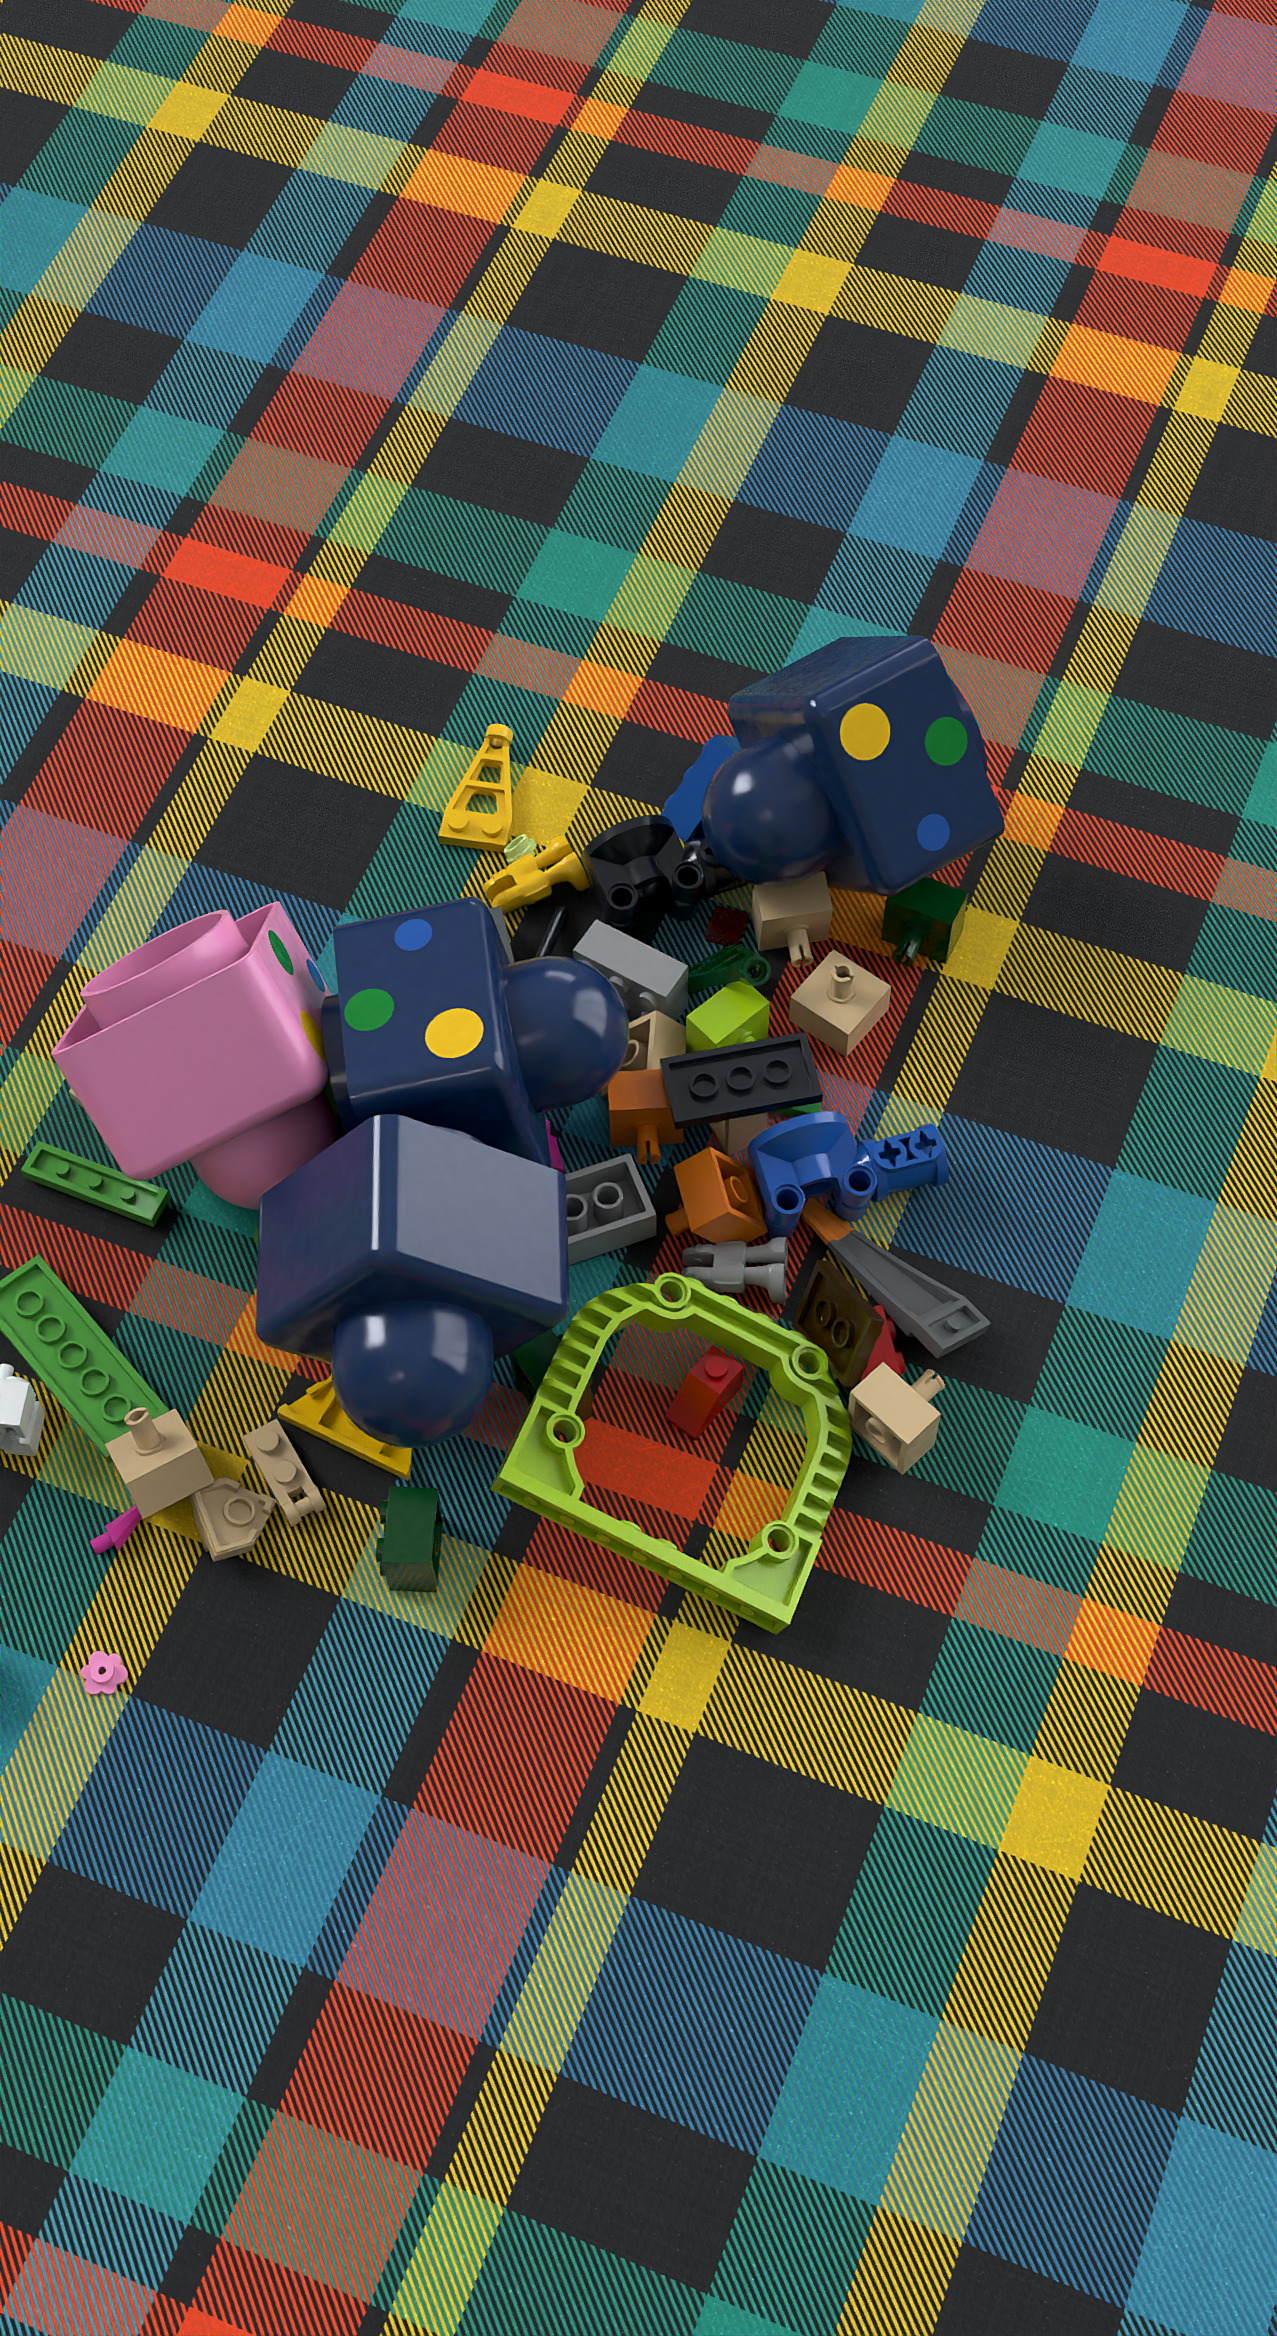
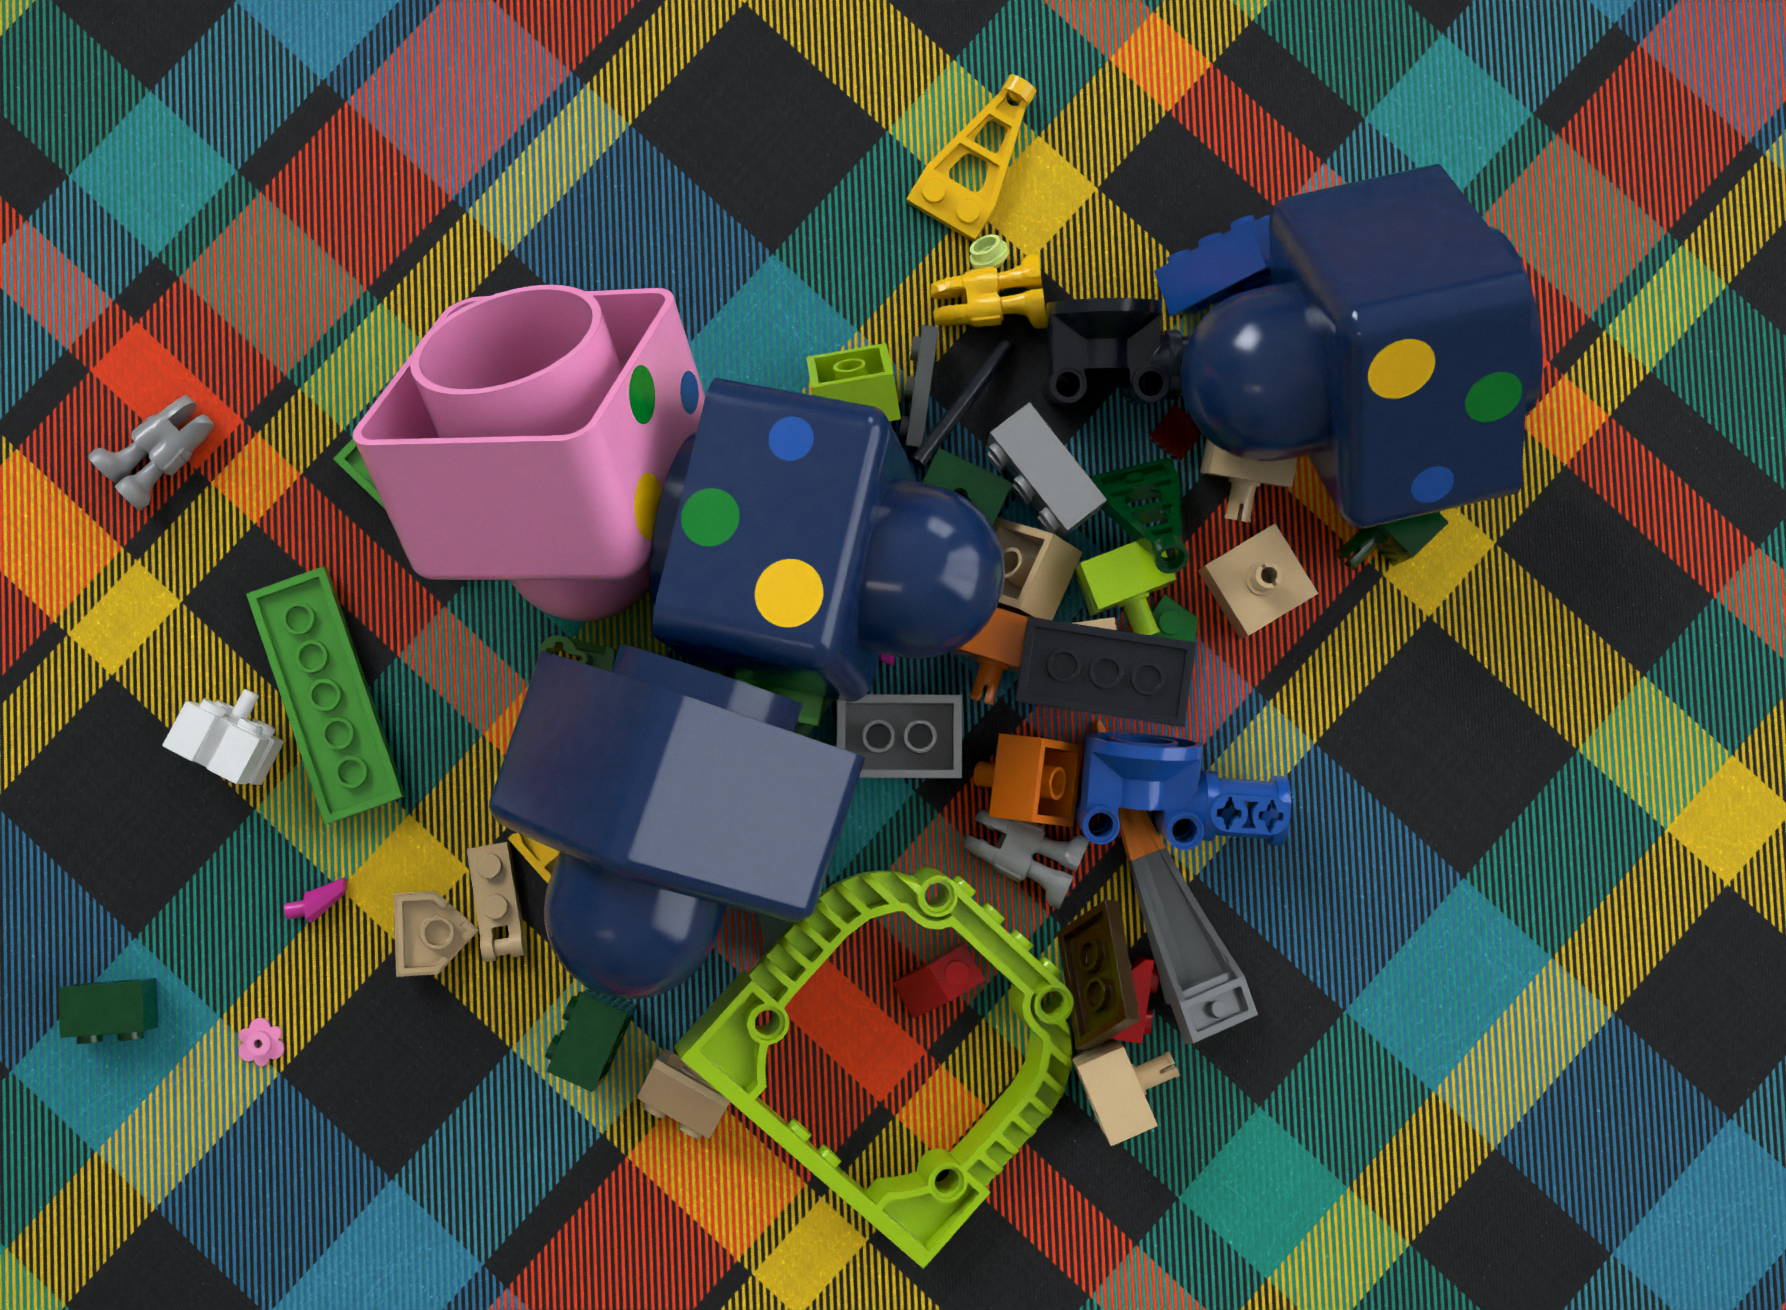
camera: 20 degrees right, 25 degrees up
(158, 1460) = (370, 859): tan brick -> none
(516, 1559) = (683, 1095): none -> tan slope

